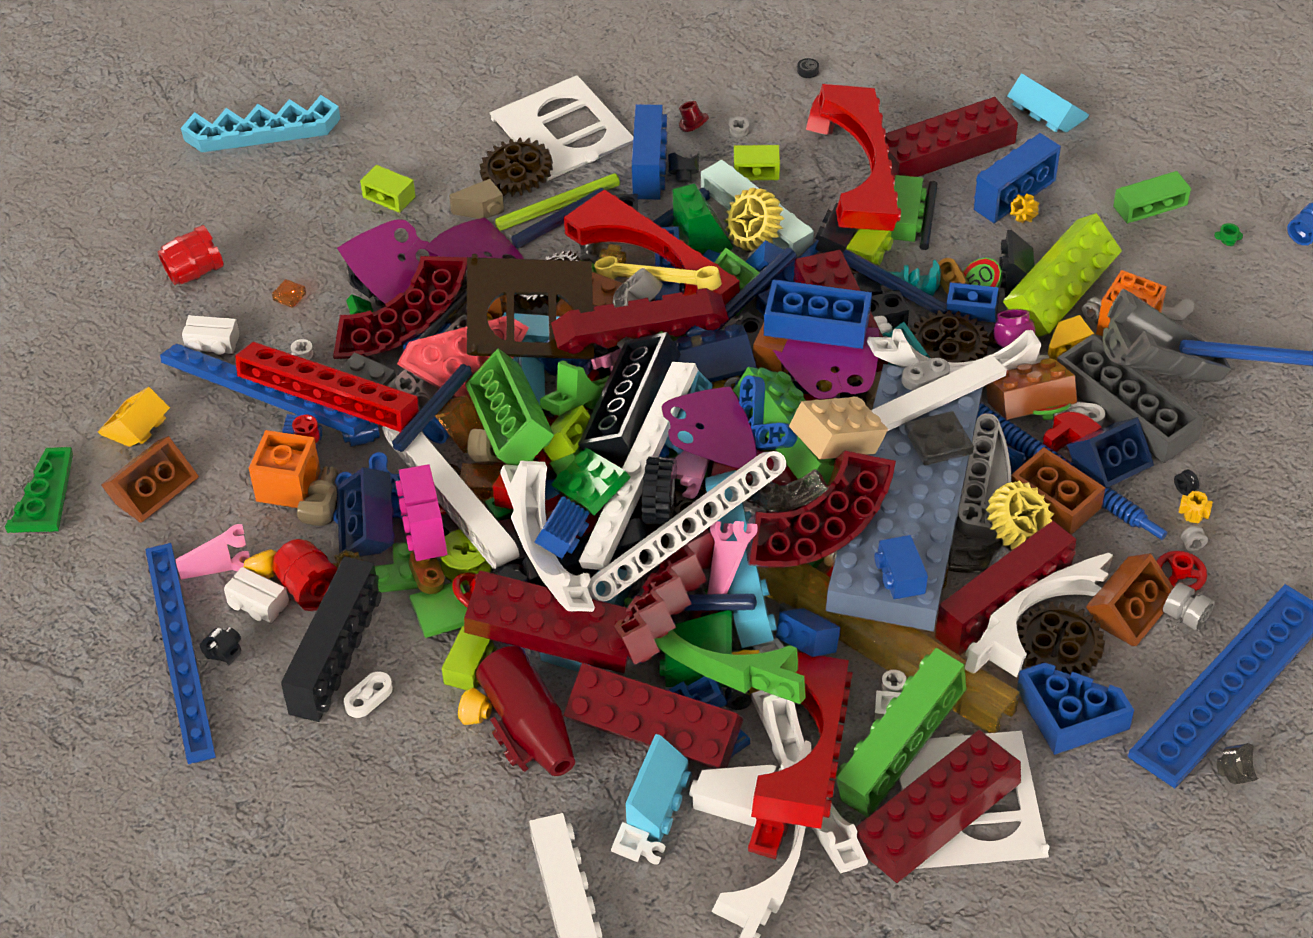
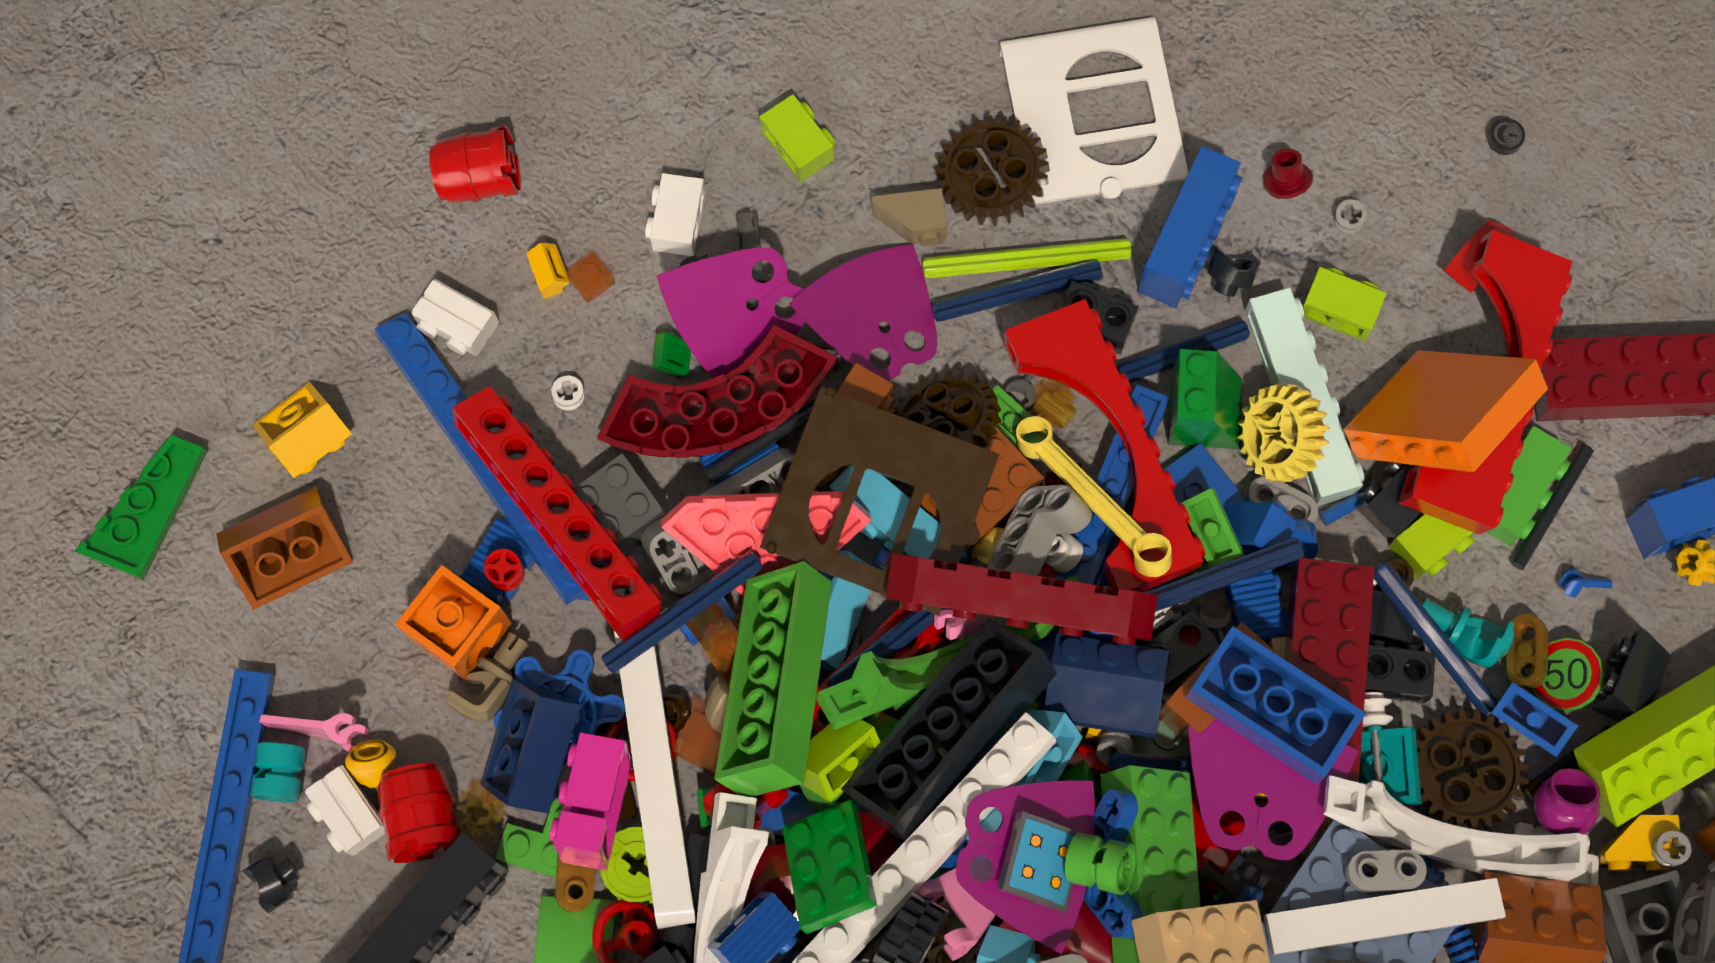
camera: 25 degrees right, 25 degrees up
(200, 589) = (277, 772): none -> teal wheel
(259, 296) = (548, 269): none -> yellow piece
(327, 237) = (676, 215): none -> white brick
(719, 422) = (1037, 862): none -> slope
(755, 409) = (1094, 861): none -> bright green wheel
(840, 170) = (1446, 410): none -> orange brick
(959, 242) = (1575, 581): none -> blue hand
(1084, 327) = (1663, 857): none -> light grey bush

